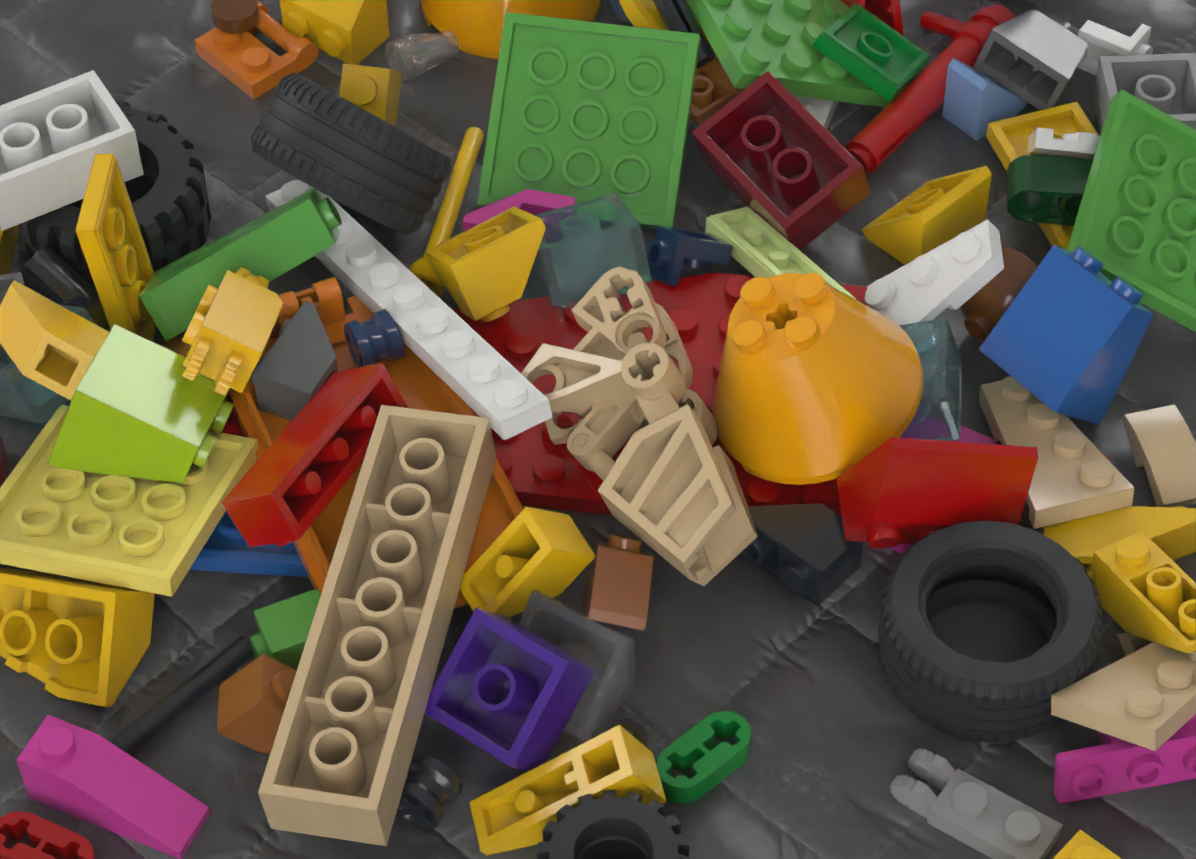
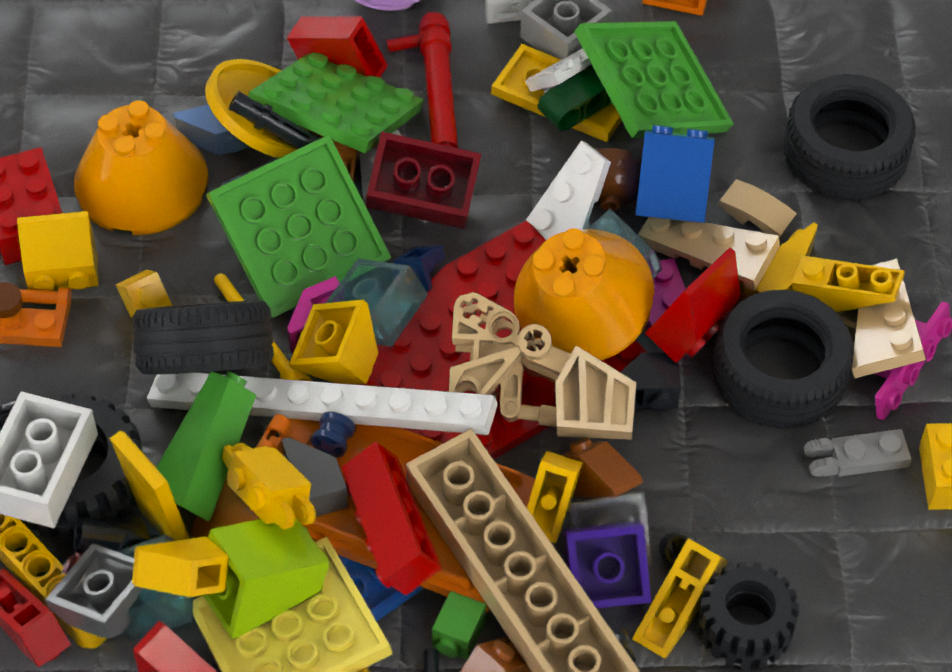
camera: 45 degrees left, 5 degrees up
(420, 52) = (136, 252): clear cone -> none
(708, 762) = (722, 526): green beam -> none
(761, 247) = (476, 238): yellowish green tile -> none
(872, 51) = (396, 83): green tile -> none
(932, 214) = (513, 158): yellow slope -> none
(976, 100) = (470, 78): medium blue slope -> none
(1032, 57) = (481, 33): dark grey torso -> none

